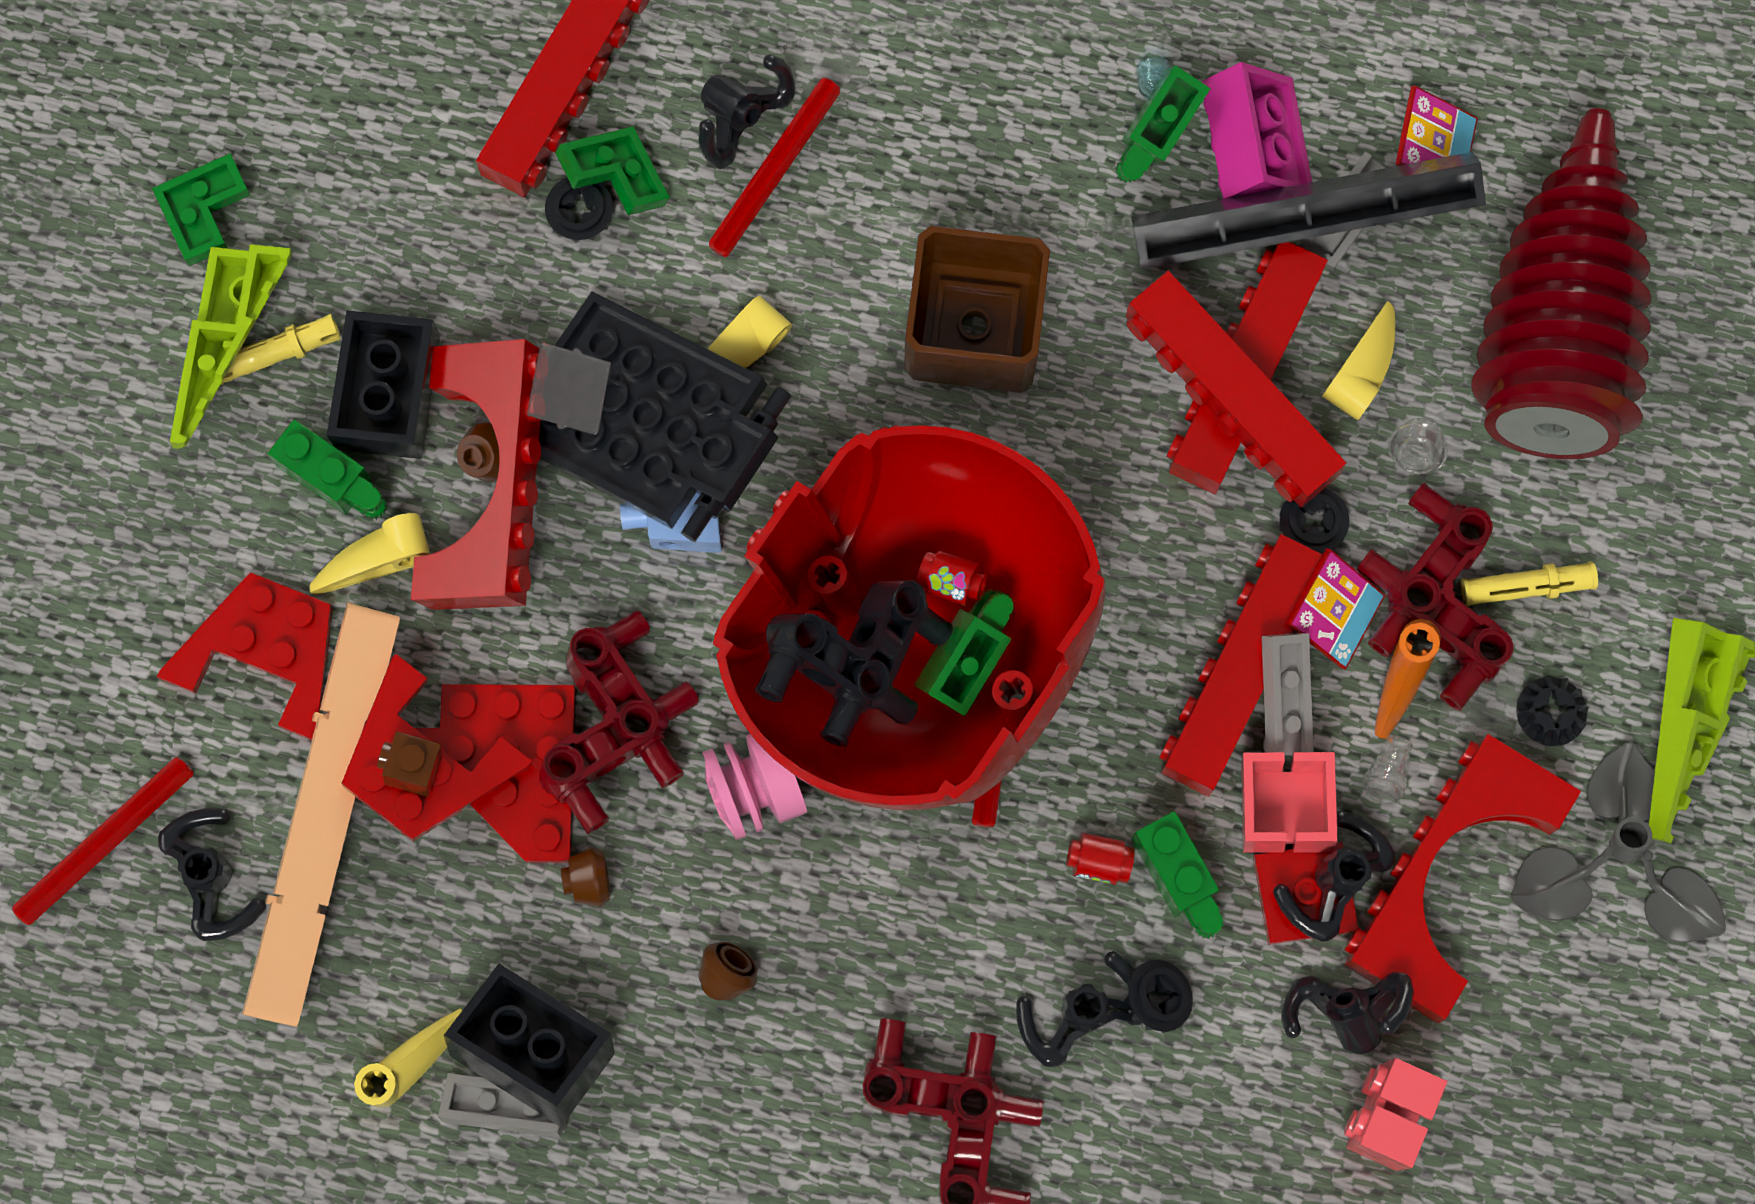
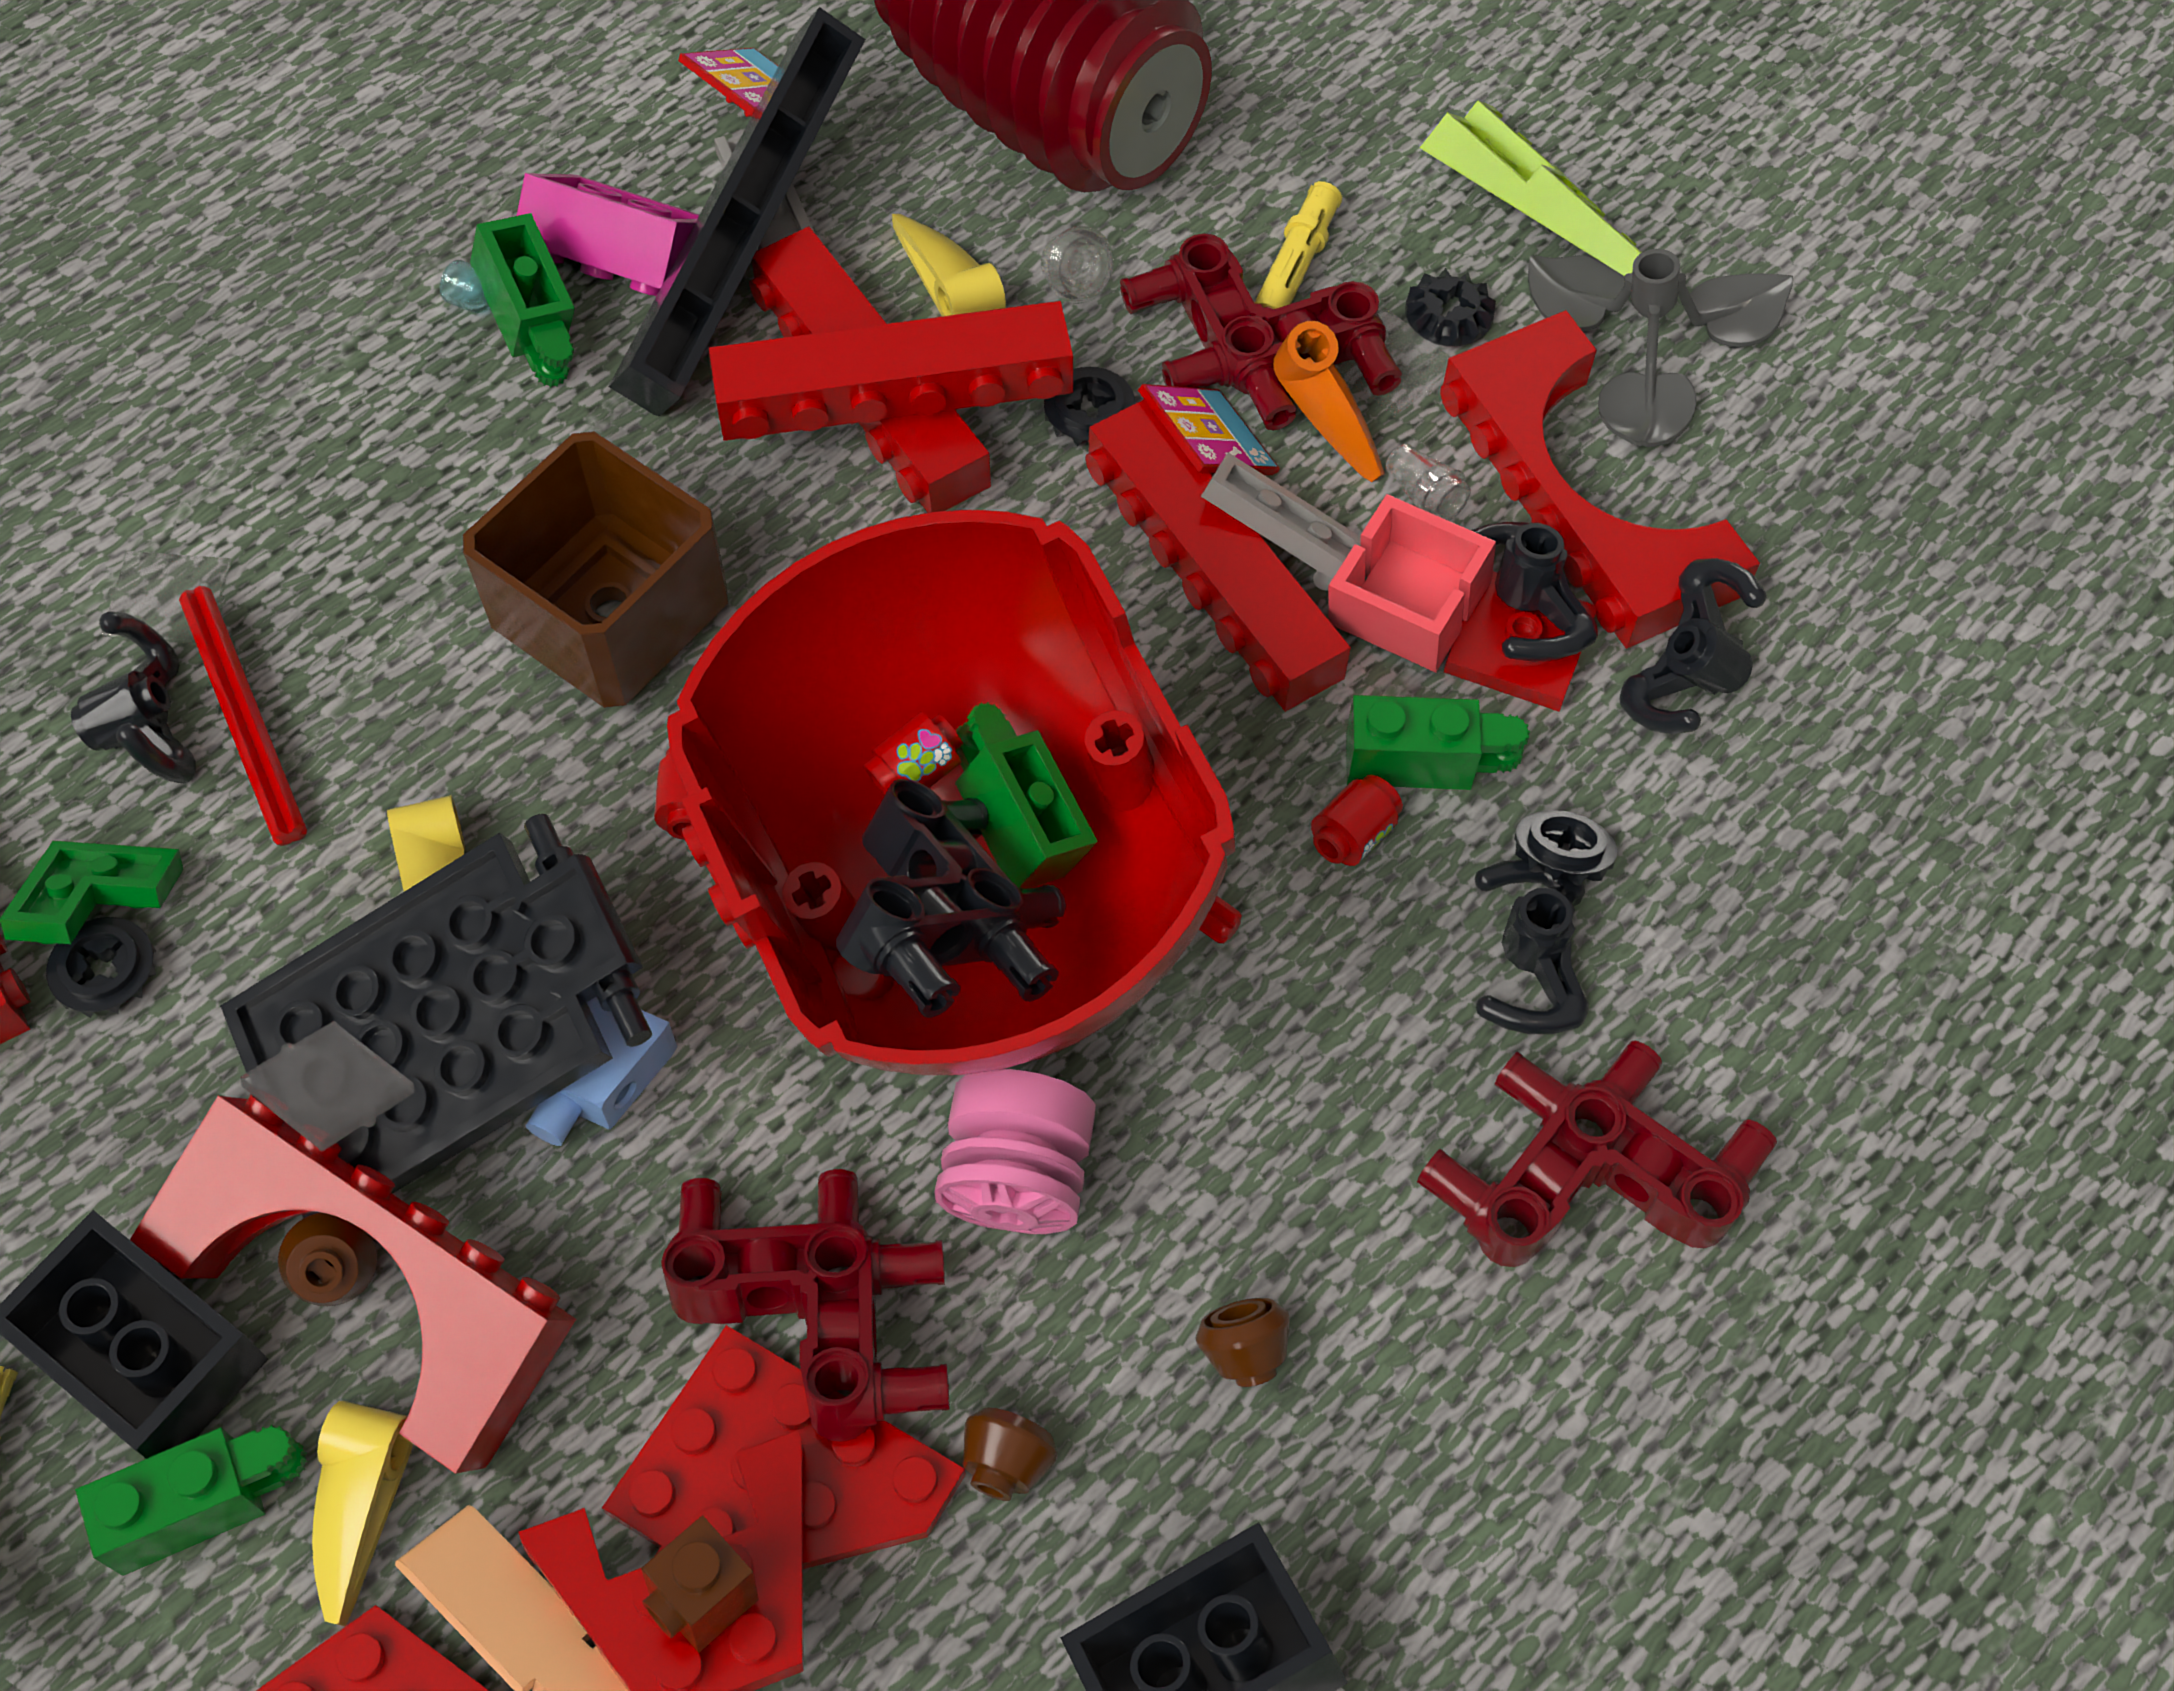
camera: 60 degrees left, 15 degrees down
(1387, 1123) = (1857, 694): coral piece -> none

